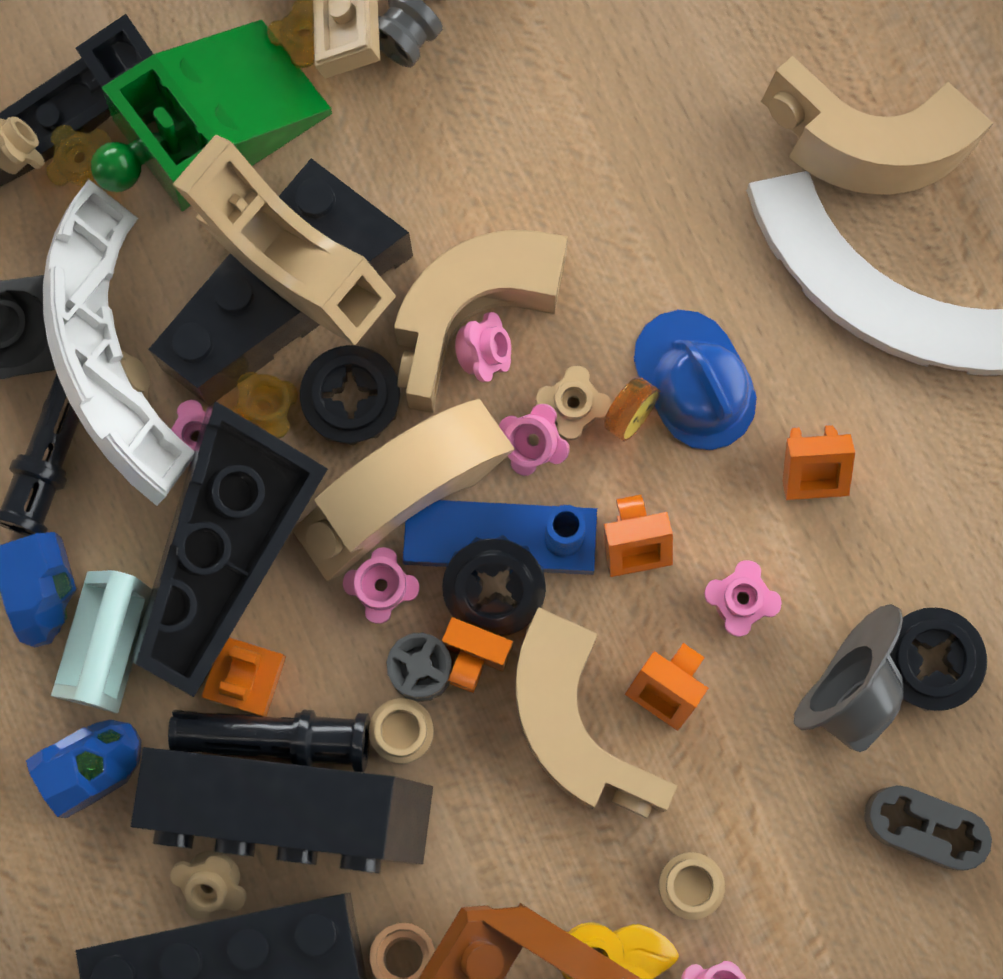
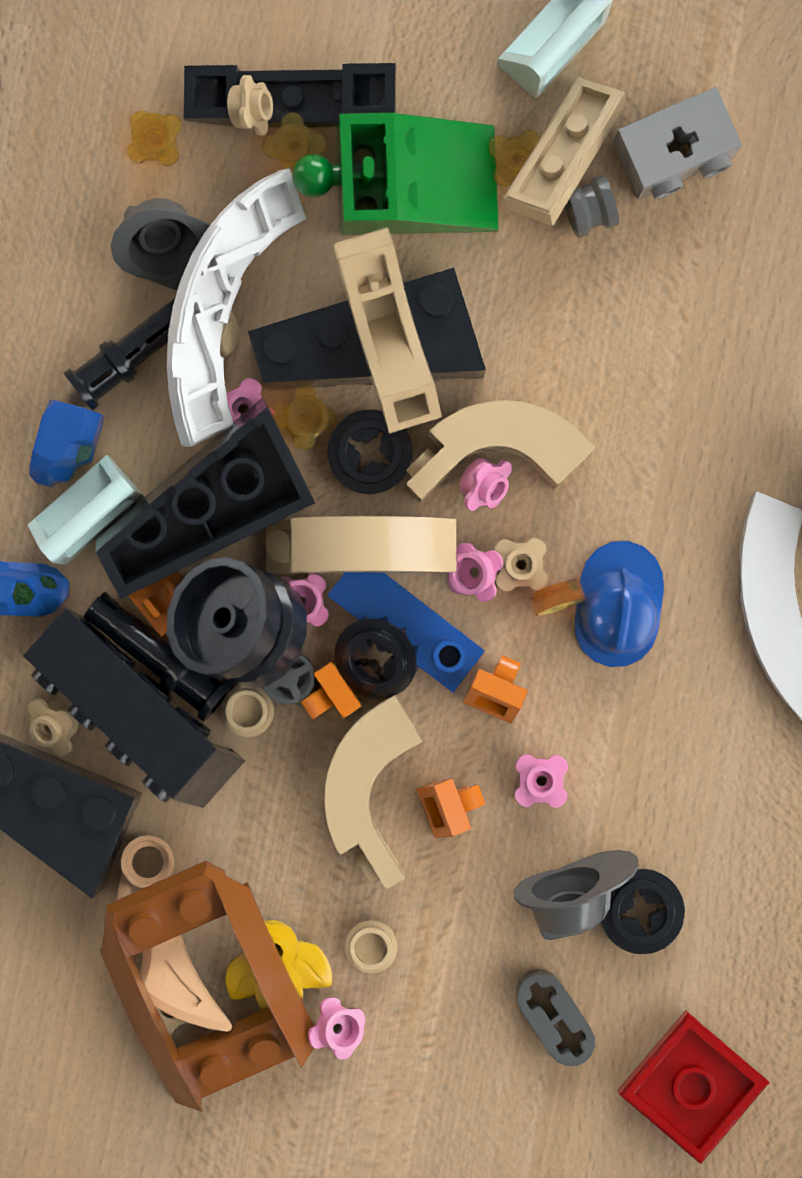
camera: 35 degrees right, 10 degrees up
(329, 642) = (236, 623): none -> black wheel
(818, 465) = (658, 726): orange tile -> none

